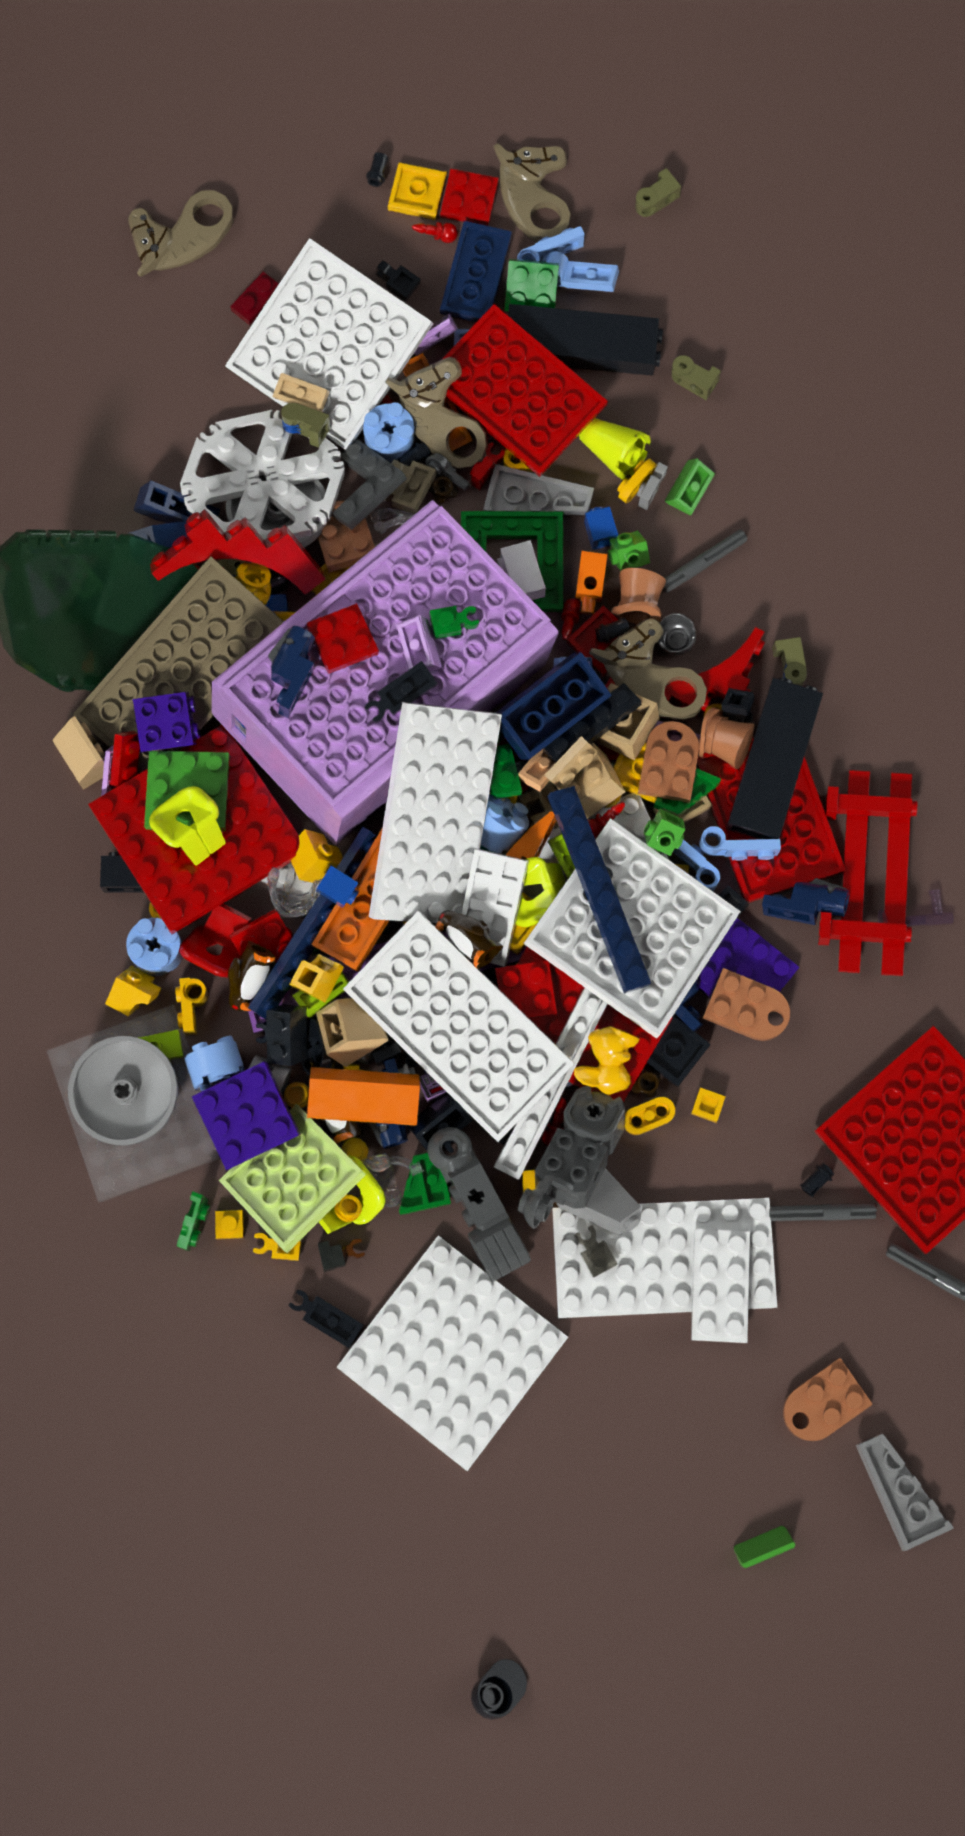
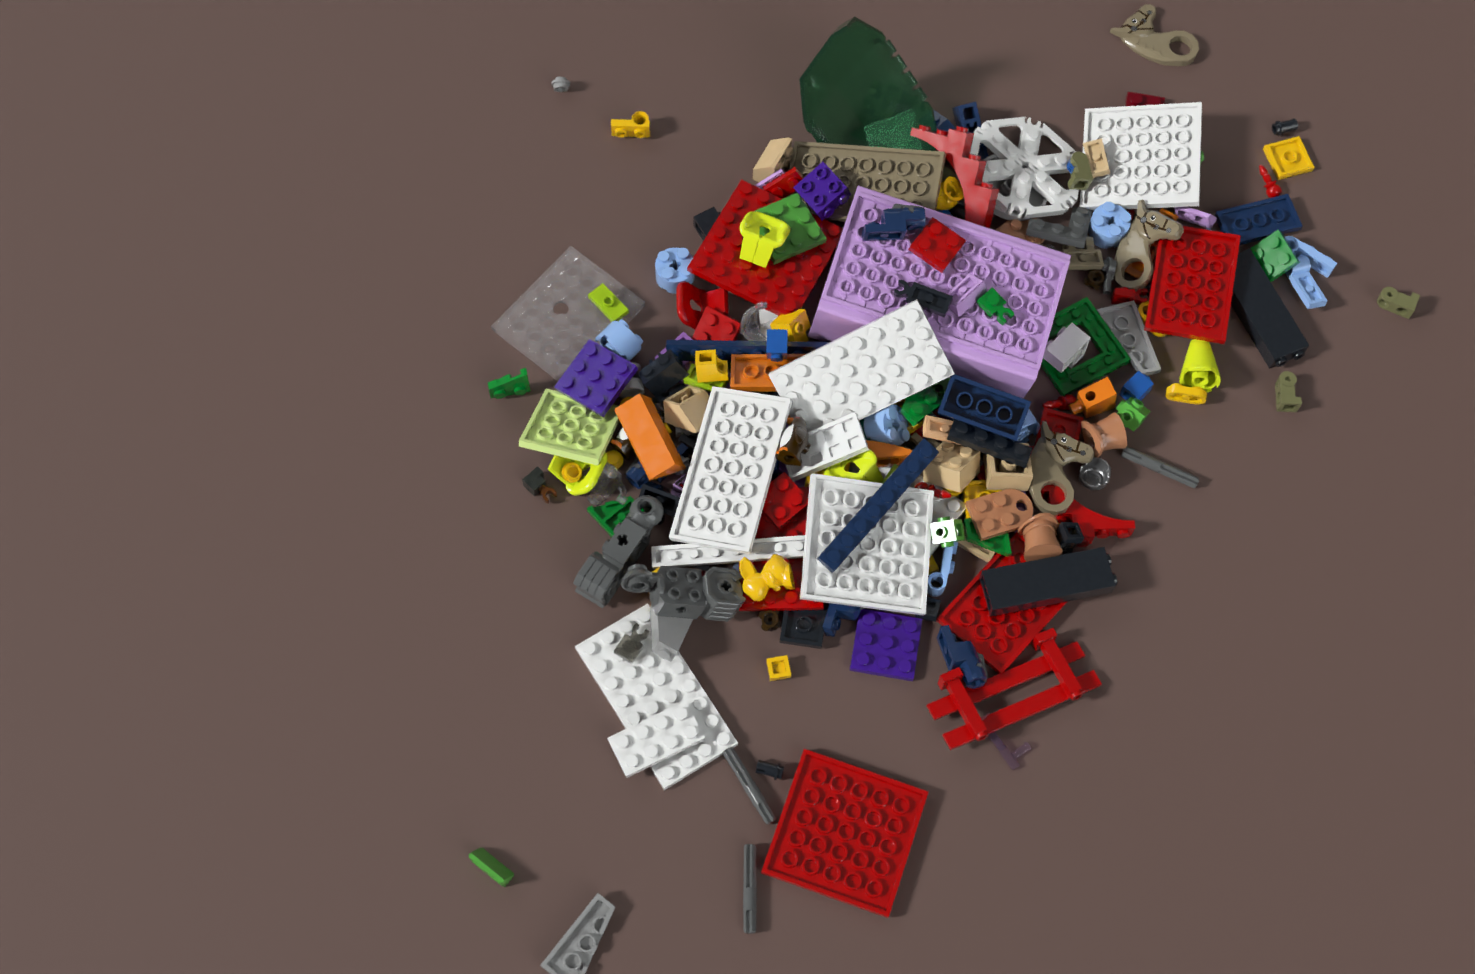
camera: 60 degrees right, 10 degrees down
(123, 1090) = (568, 296): light grey dish -> none
(131, 990) = (638, 271): yellow brick -> none
(187, 1017) = (648, 310): yellow plate -> none
(229, 1224) = (520, 411): yellow plate -> none
(248, 975) = (689, 327): animal -> none
(277, 1251) = (524, 455): yellow plate -> none
(328, 1319) = (492, 502): black plate -> none
(399, 281) = (1217, 179): black plate -> none
(416, 454) = (1106, 251): black pin -> none
(452, 1352) = (513, 593): white plate -> none
(469, 197) = (1308, 190): red plate -> none
(499, 1690) = (303, 737): black cap -> none
(521, 188) = (1339, 218): dark tan animal -> none
(569, 765) = (954, 442): tan plate -> none
(611, 630) = (1065, 427): black pin -> none
(647, 1114) = (748, 633): yellow plate -> none
(648, 490) = (1187, 405): light grey plate -> none
(690, 486) = (1207, 432): bright green slope -> none
(738, 849) = (969, 590): light blue plate -> none
(745, 1006) = (862, 654): nougat plate -> none
(792, 659) = (1129, 561): olive leg -> none
(827, 1401) = (617, 859): nougat plate -> none

